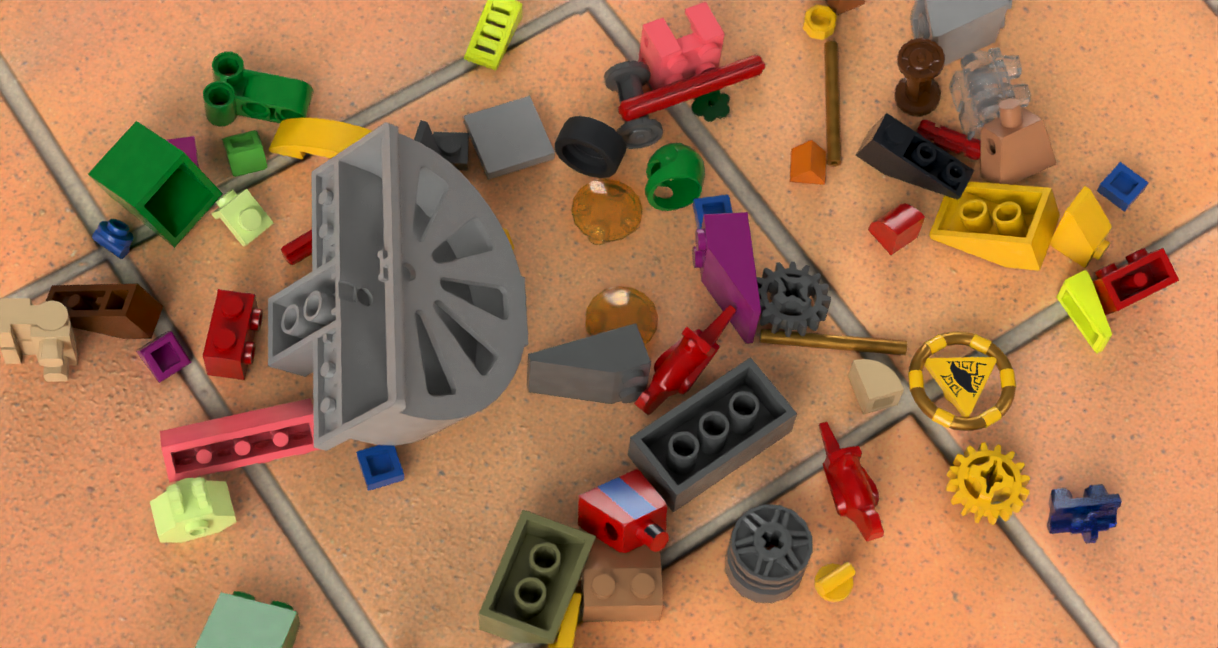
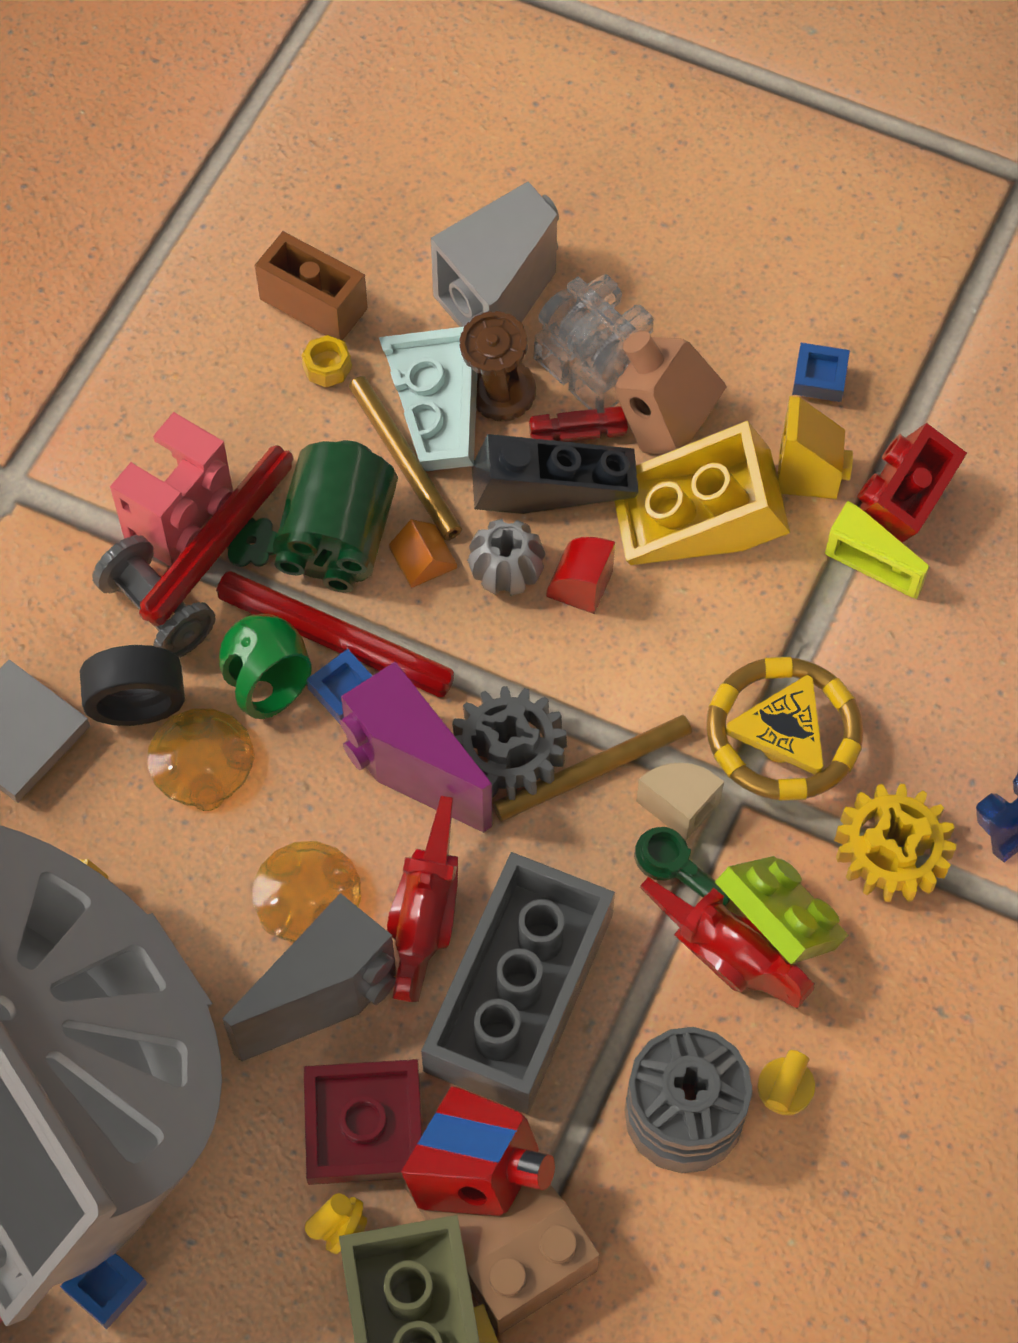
camera: 25 degrees left, 0 degrees up
(528, 501) = (336, 1218): none -> yellow plate
(575, 458) = (361, 1120): none -> dark red plate
(728, 183) = (335, 633): none -> red axle
(768, 112) = (335, 514): none -> dark green cylinder
(844, 414) = (665, 855): none -> dark green plate
(856, 192) = (506, 557): none -> light grey piece
(872, 77) = (435, 395): none -> light aqua wing
(893, 480) = (782, 908): none -> lime plate

